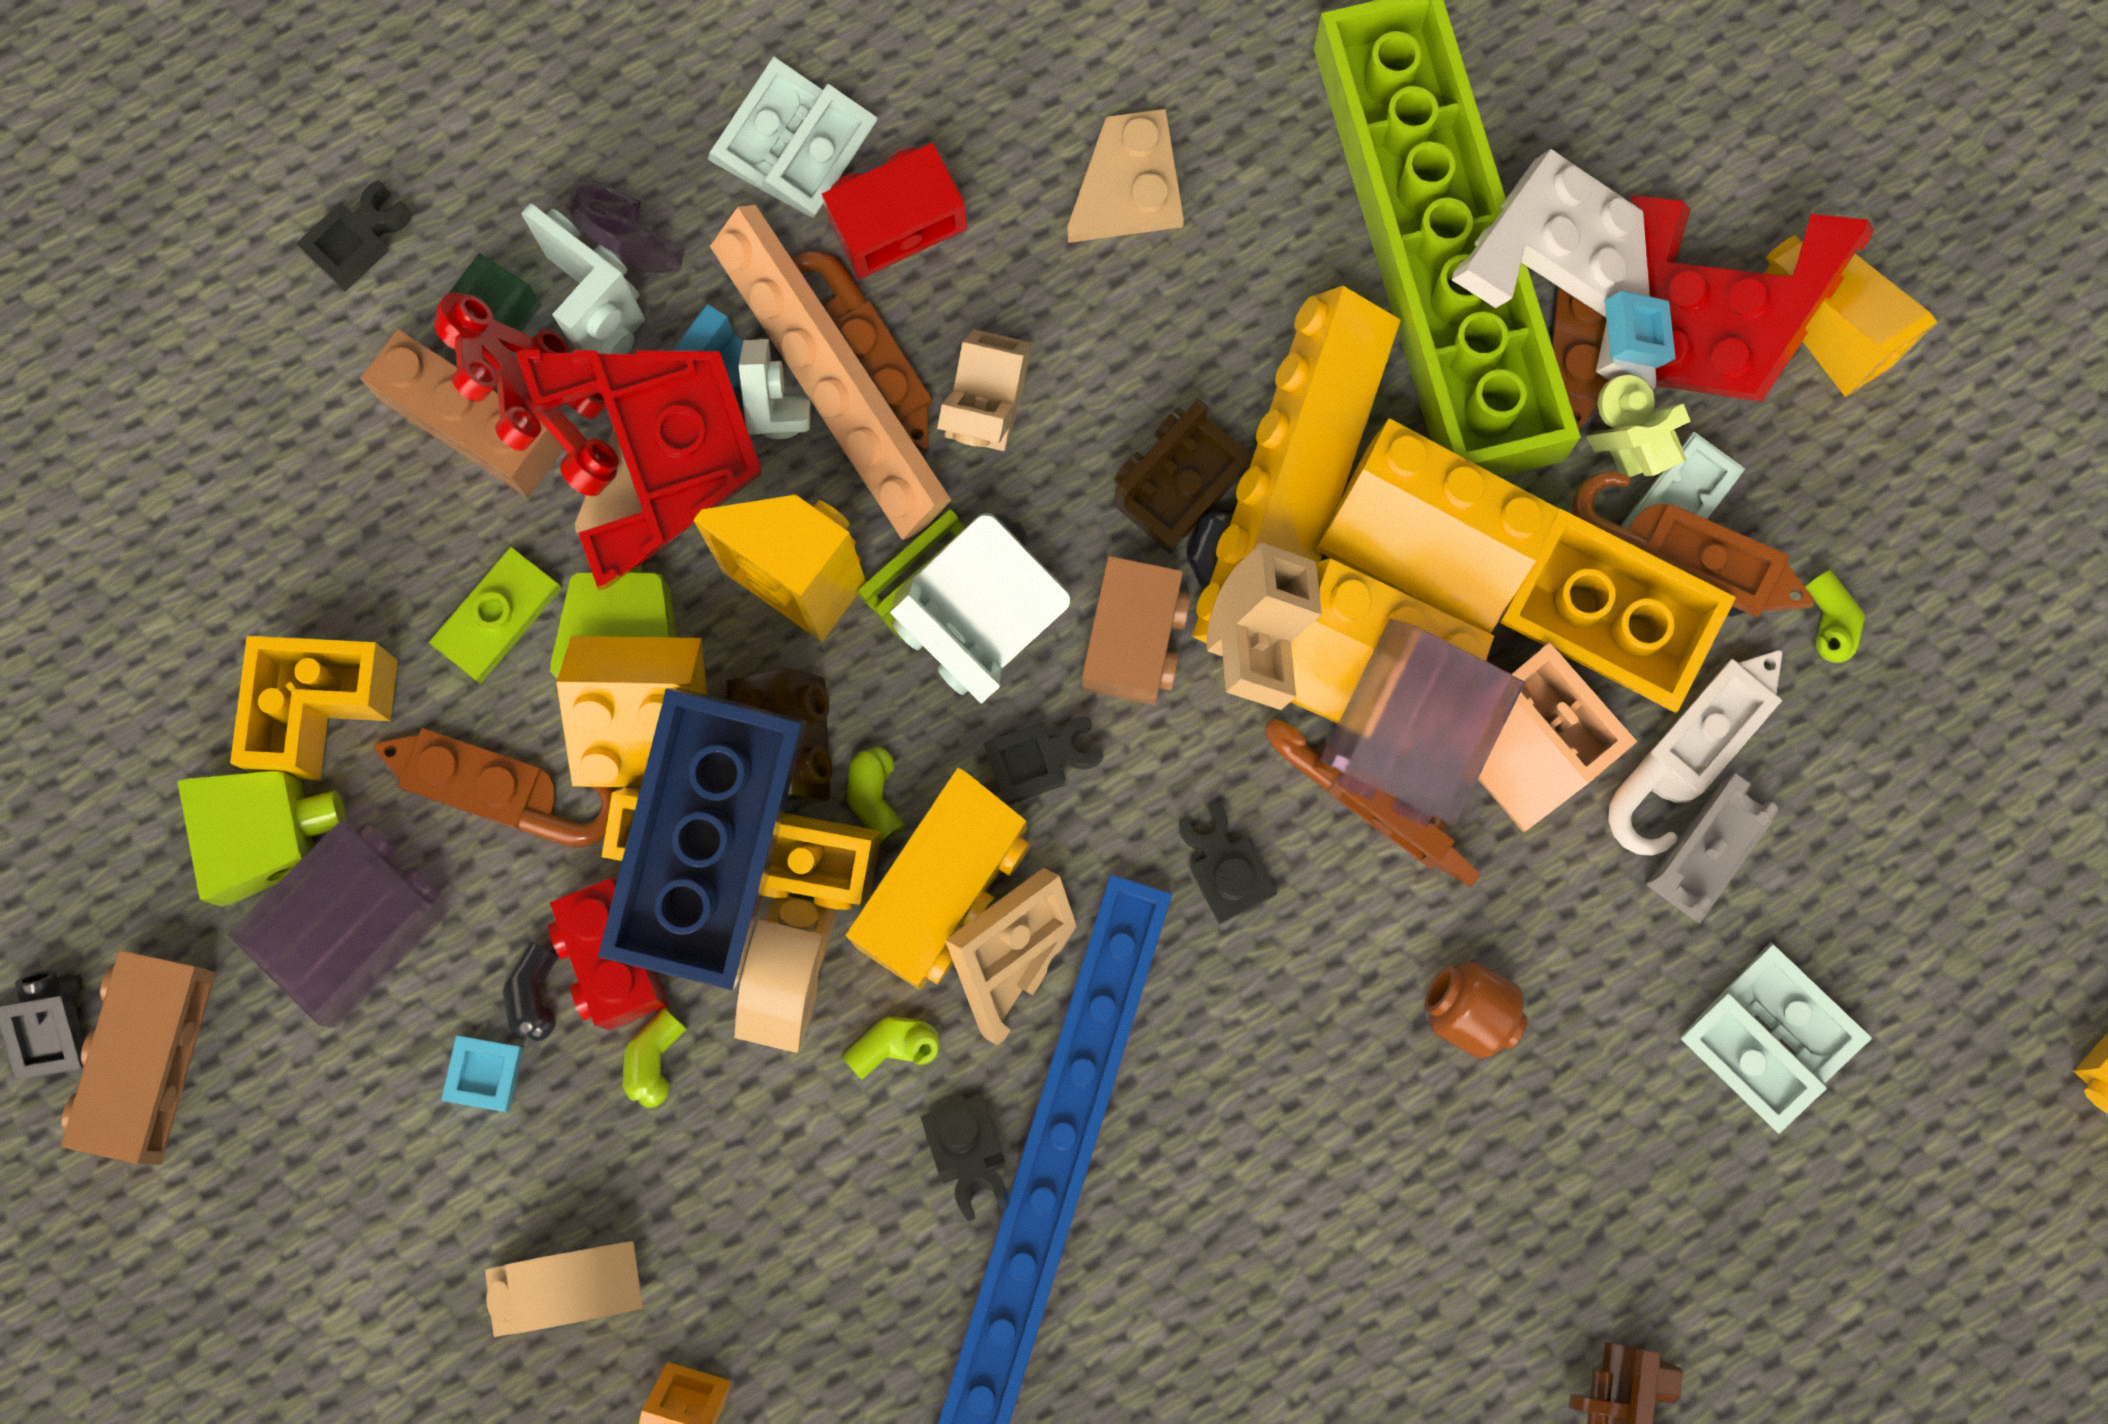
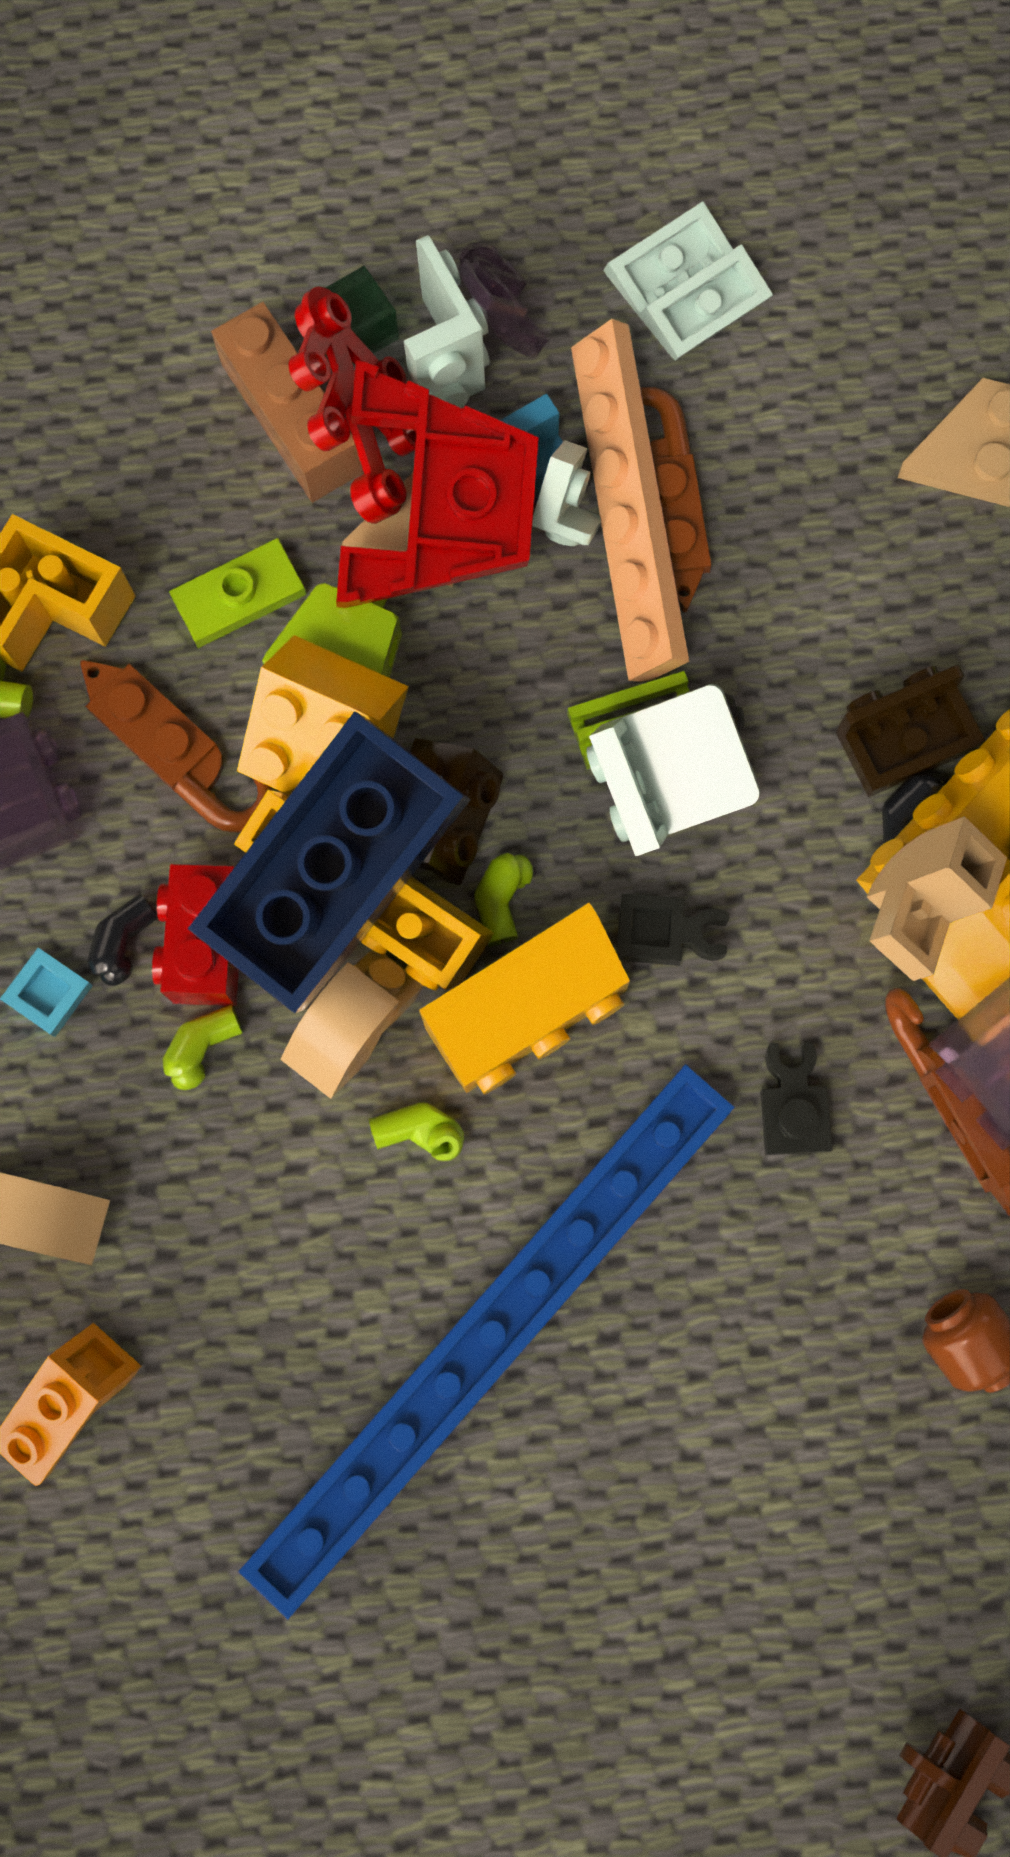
camera: 25 degrees right, 0 degrees up
(349, 242) = (255, 213): pearl dark grey plate -> none
(788, 557) = (518, 646): yellow slope -> none
(894, 209) = (753, 381): red brick -> none
(964, 1149) = (443, 1252): pearl dark grey plate -> none
(986, 390) = (764, 577): tan brick -> none
(1011, 948) = (564, 1091): tan wing -> none
(1133, 631) = (804, 851): medium nougat brick -> none

